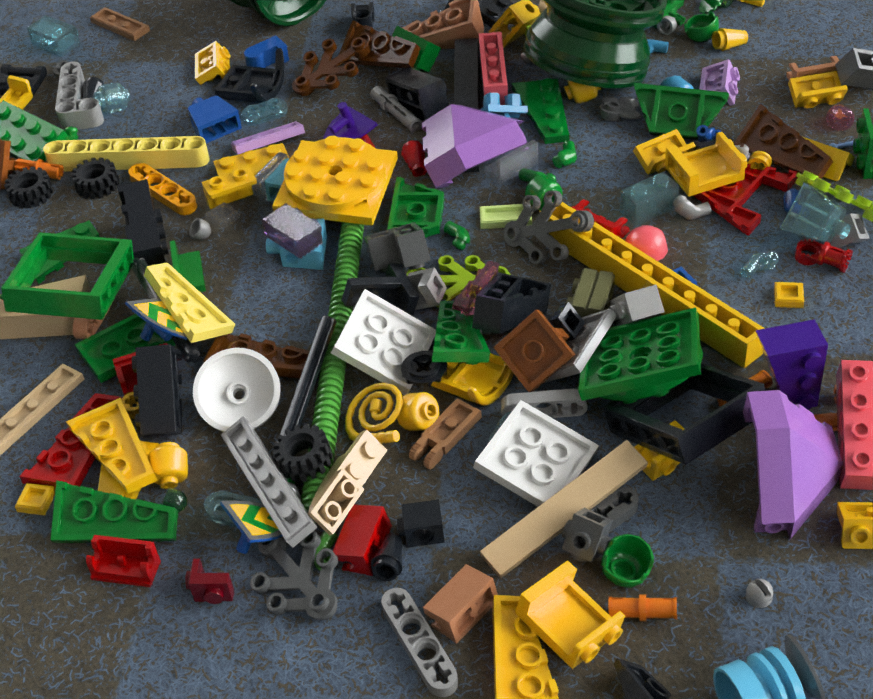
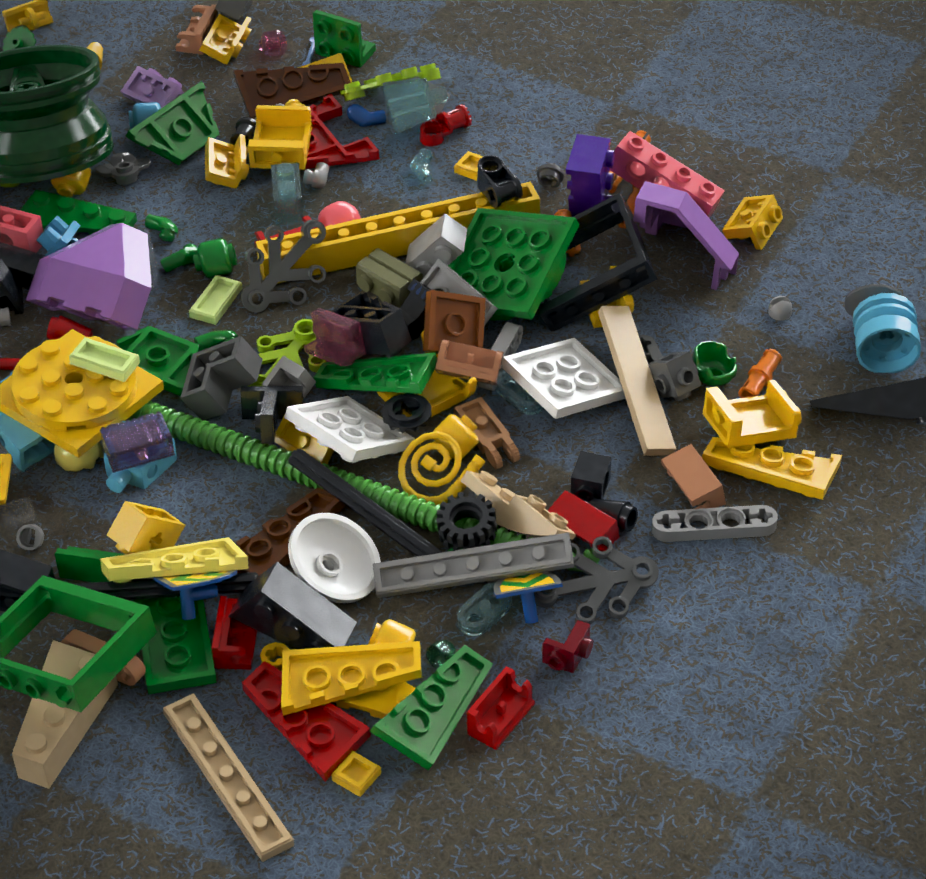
camera: 70 degrees left, 0 degrees up
(213, 275) = (144, 528): none -> yellow brick
(354, 173) = (104, 359): none -> yellowish green tile
(496, 380) = (469, 362): none -> nougat hinge
(705, 133) = (226, 126): blue arm -> none
(731, 302) = (497, 181): none -> black piece

